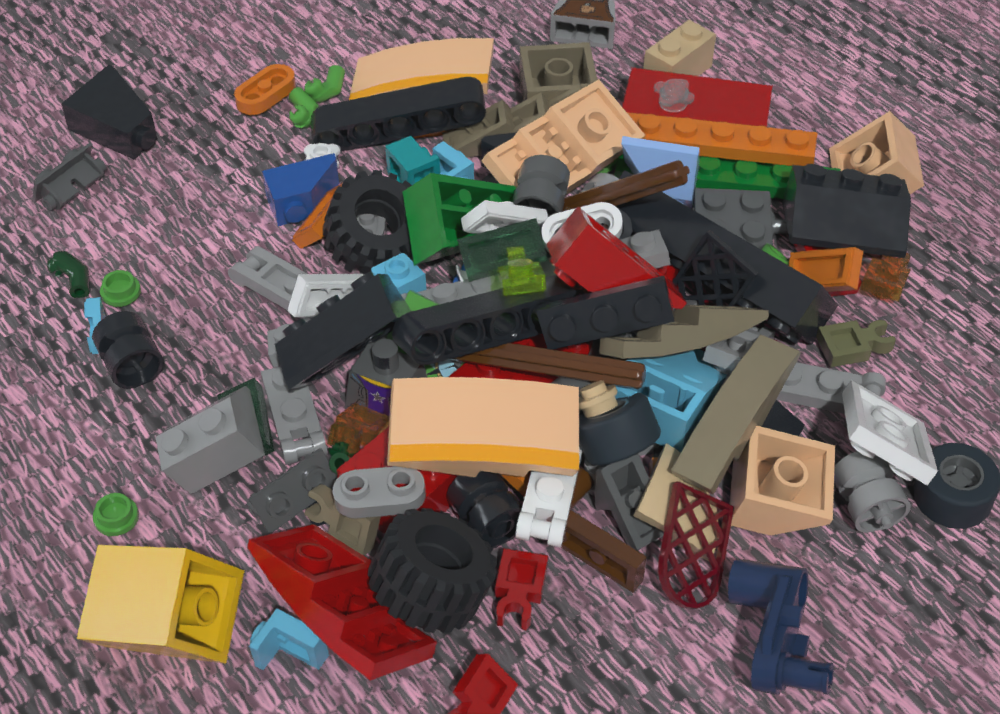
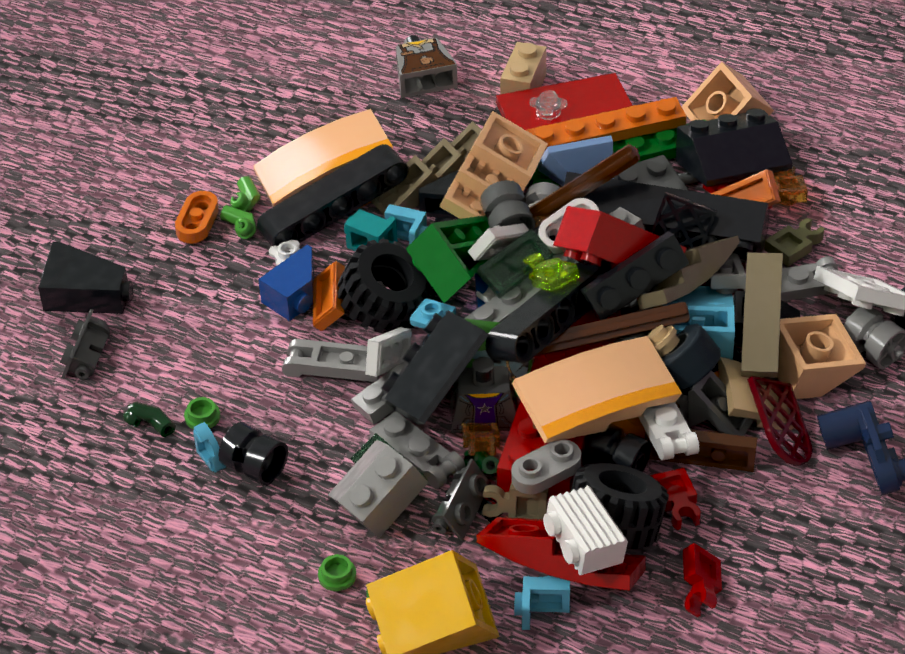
camera: 25 degrees left, 5 degrees down
(348, 589) = (584, 531): none -> white brick
(555, 68) = (437, 117): dark tan brick -> none

